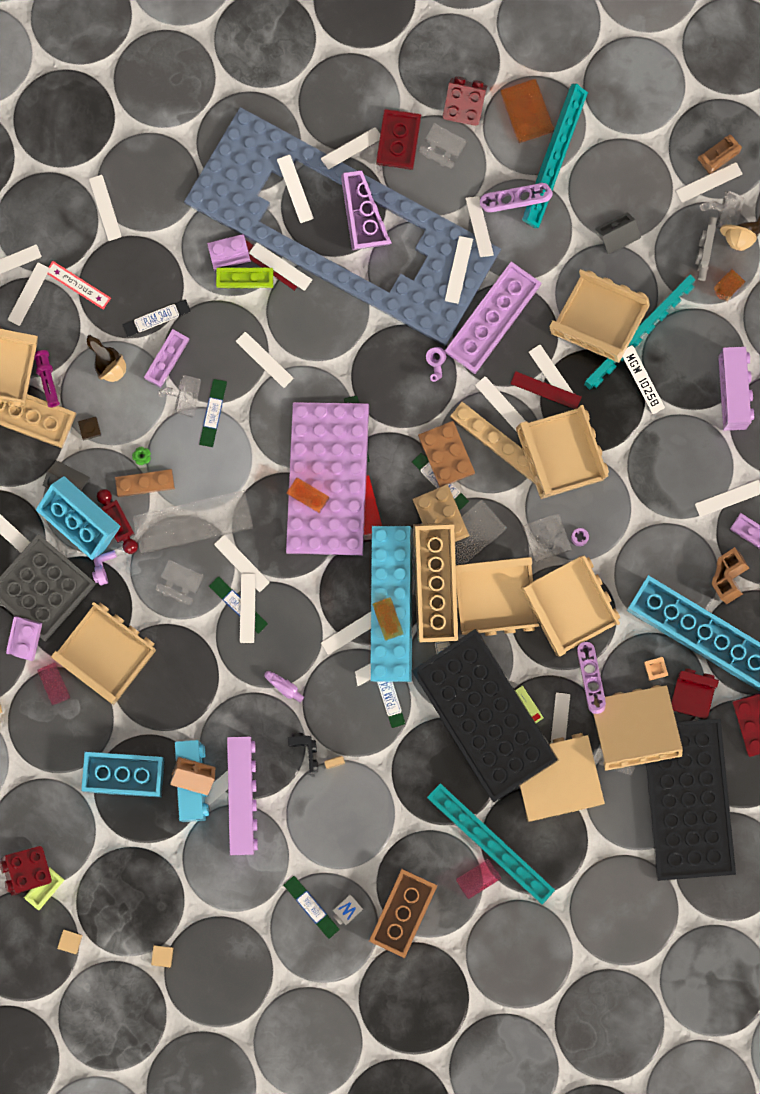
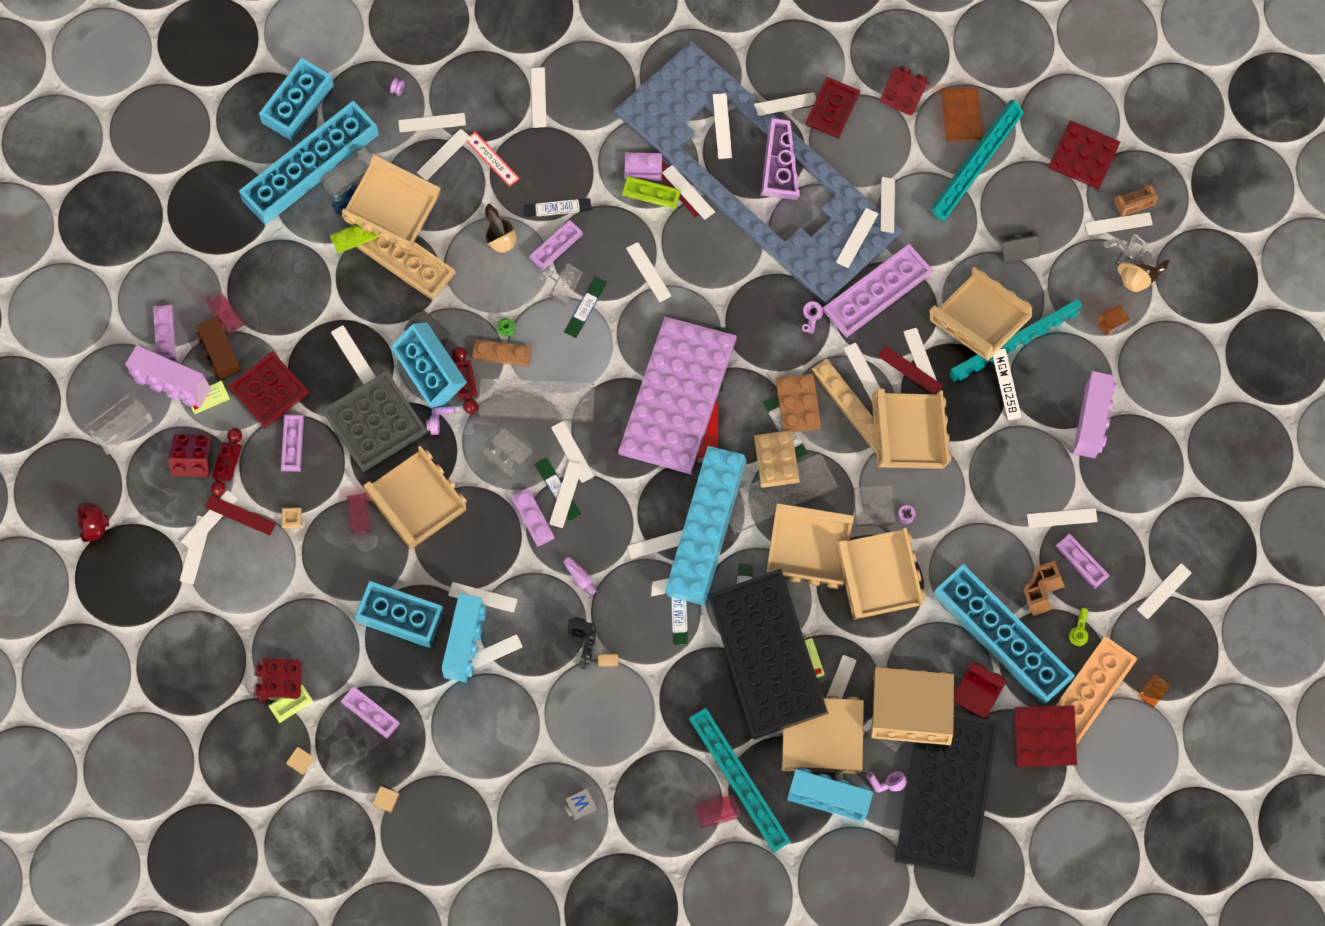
camera: 10 degrees right, 10 degrees down
(24, 638) = (343, 462): lavender plate -> none
(44, 370) = (437, 225): magenta pin -> none
(89, 428) = (464, 289): dark brown plate -> none
(122, 877) = (370, 712): none -> lavender plate
(193, 776) = (467, 628): hinge -> none
(197, 732) = (489, 599): none -> white sticker
(222, 640) = (532, 517): none -> lavender plate
(241, 795) = (508, 666): lavender brick -> none
(308, 495) = (654, 402): clear orange plate -> none
(311, 907) = (545, 793): sticker -> none
(388, 619) = (698, 534): clear orange plate -> none
(403, 913) = (634, 821): medium nougat brick -> none
(435, 582) = (754, 514): tan brick -> none
(445, 141) = (876, 120): clear plate -> none
(516, 200) = (930, 183): lavender beam -> none
(581, 837) = (830, 795): none -> medium azure brick
(591, 677) = (884, 647): lavender beam -> none
(637, 804) = (895, 782): none -> lavender plate
(656, 668) = (947, 657): light nougat plate -> none
(657, 120) = (1084, 154): none -> dark red plate
(704, 253) = (1098, 279): light grey plate -> none

